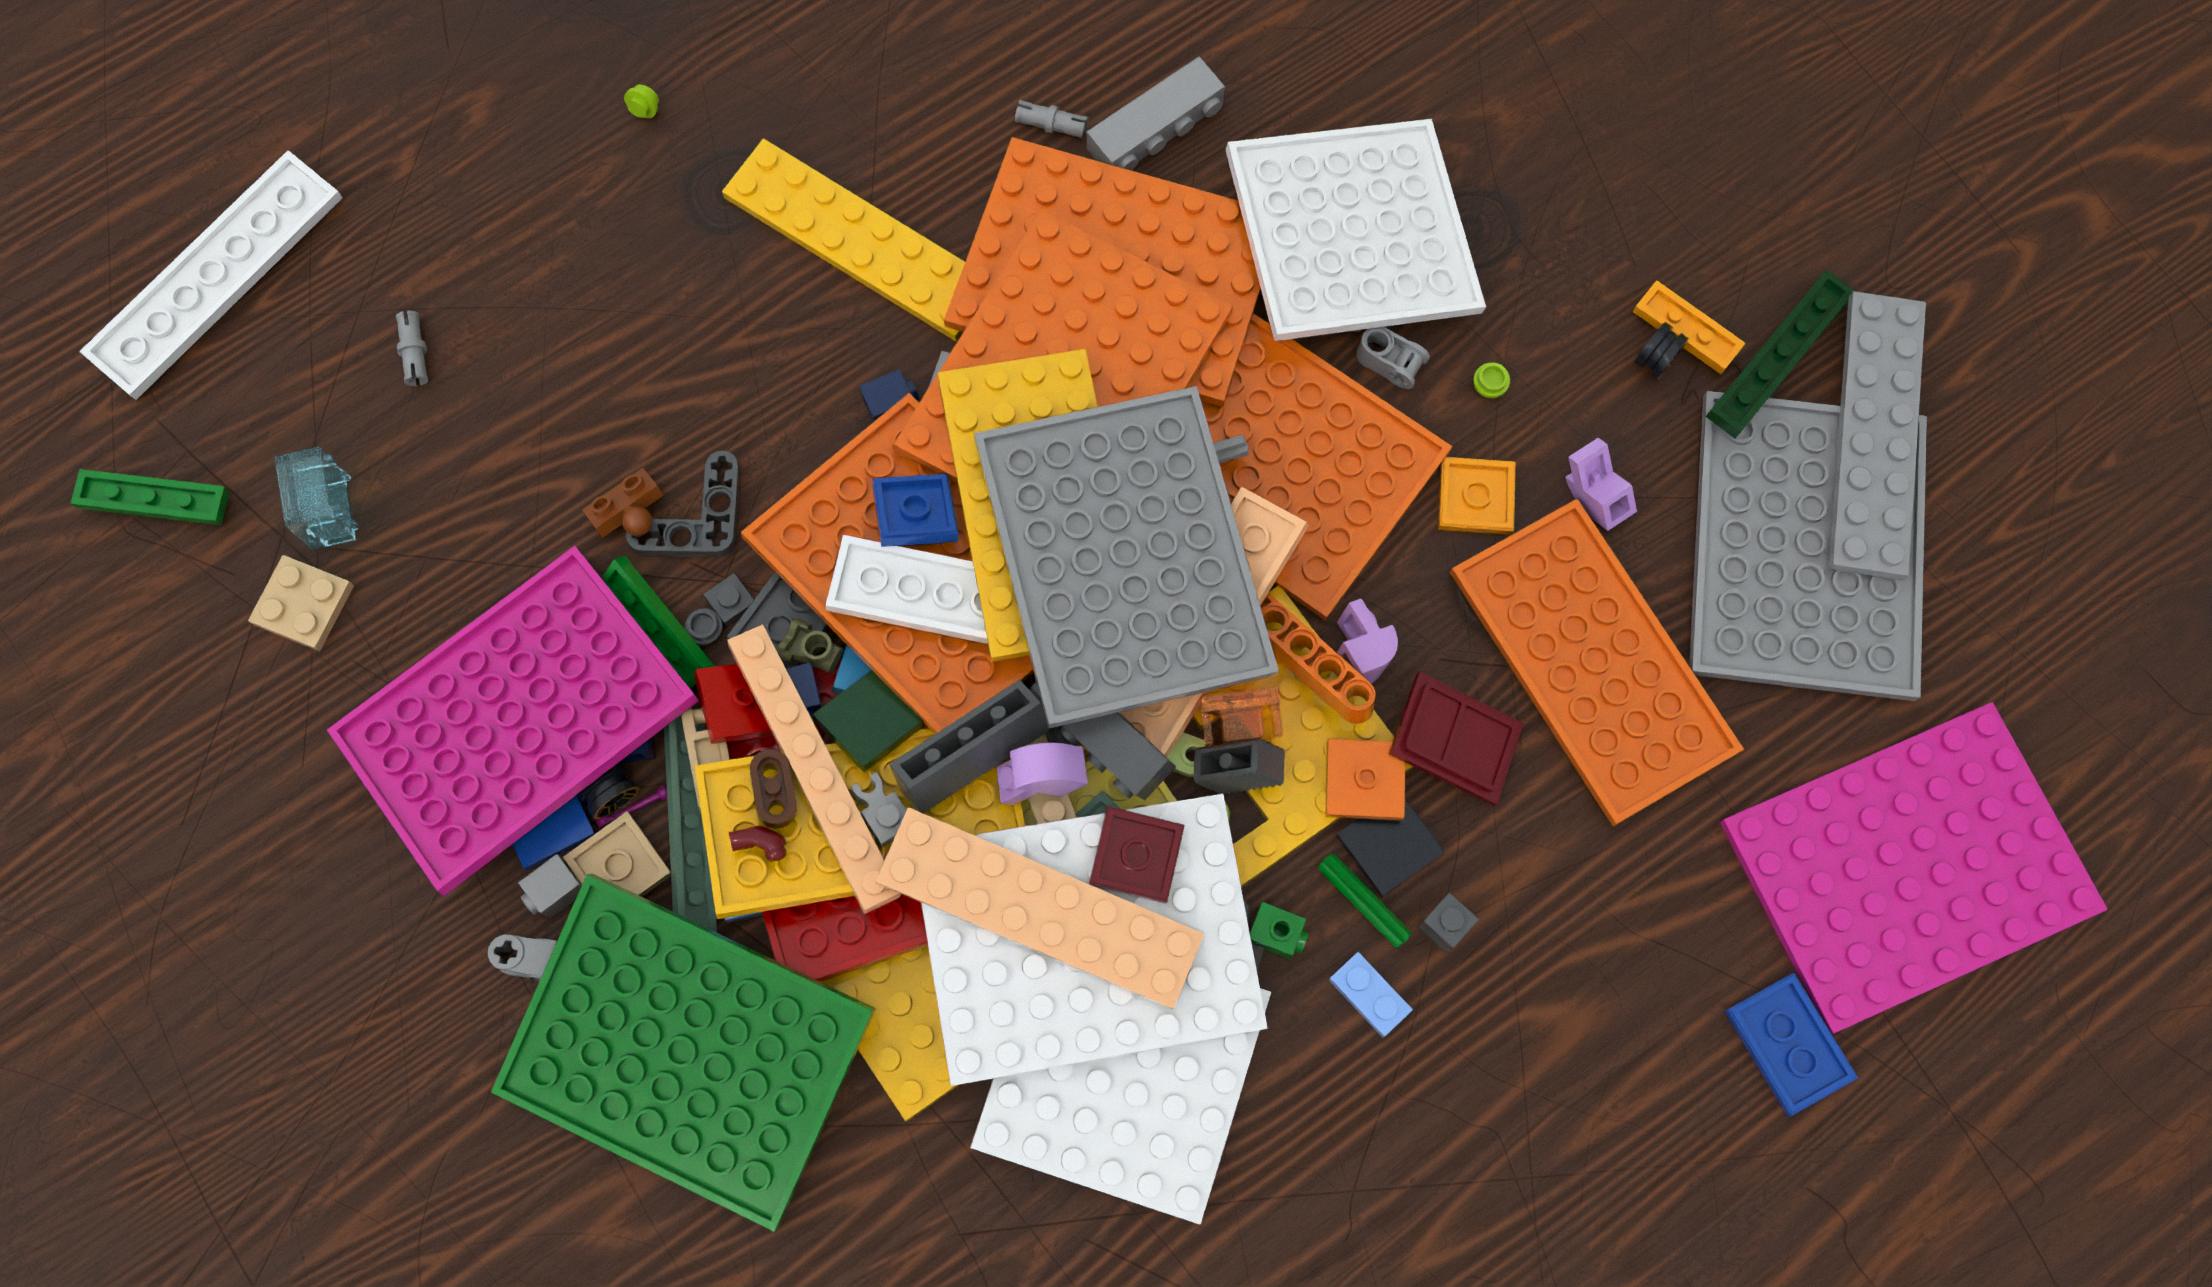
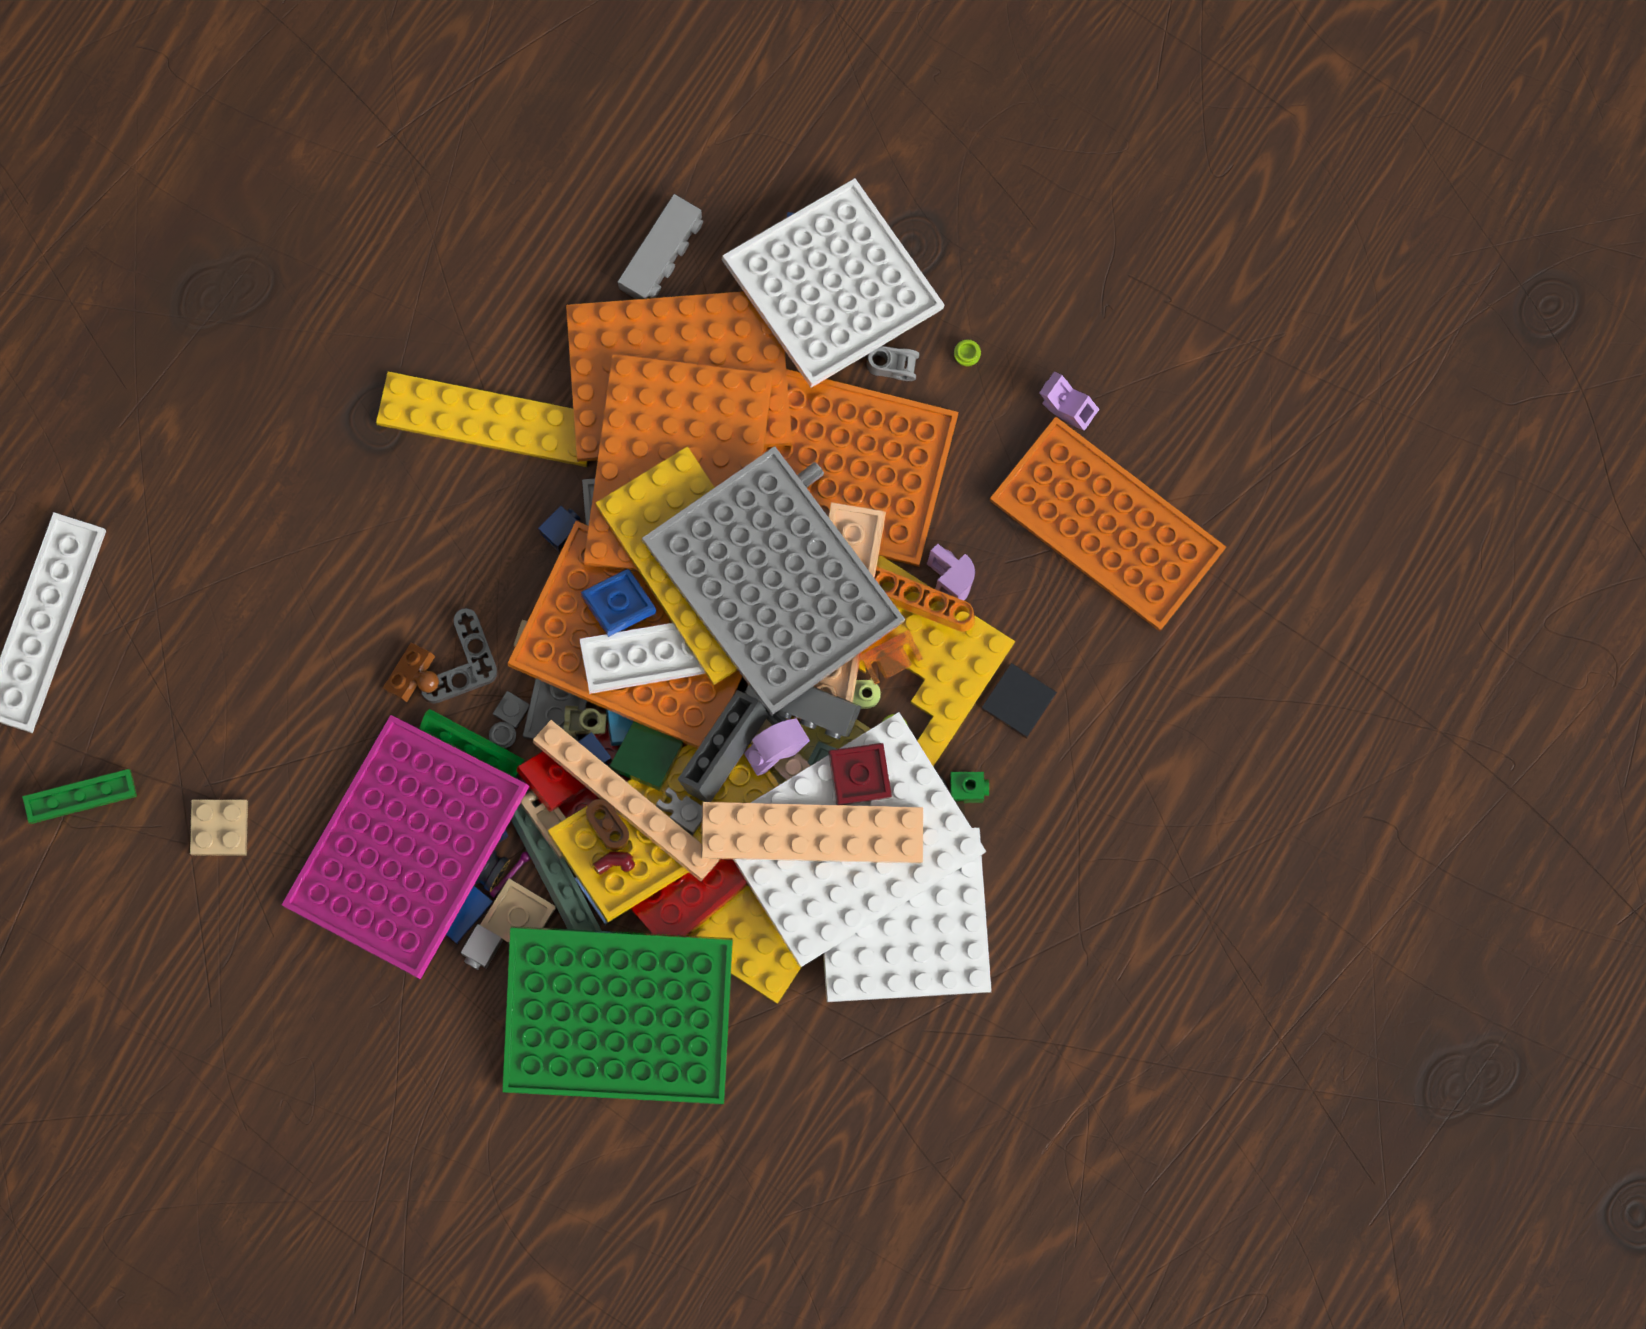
camera: 25 degrees left, 5 degrees up
(315, 498) = (201, 752): clear light blue container -> none
(411, 348) = (209, 620): light grey pin -> none
(530, 958) = (492, 995): light grey piece -> none
(642, 101) = (289, 377): lime plate -> none
(1051, 119) = (586, 277): light grey pin -> none
(1239, 766) = (901, 689): dark grey brick -> none
(1364, 780) = (987, 665): orange plate -> none
(1364, 900) = (1016, 744): green axle -> none
(1370, 994) = (1043, 804): light blue plate -> none
(1448, 923) = (1075, 738): dark grey brick -> none
(1456, 738) = (1036, 613): dark red piece -> none
(1477, 496) = (987, 439): light orange tile -> none
(1661, 350) = (1075, 288): black wheel -> none
(1706, 337) = (1087, 262): light orange plate -> none
(1762, 563) = (1221, 387): light grey plate -> none
(1780, 354) = (1156, 259): dark green plate -> none
(1791, 1044) = (1322, 729): blue tile -> none
(1877, 436) = (1240, 293): light grey plate -> none
(1912, 867) = (1361, 581): dark pink plate -> none

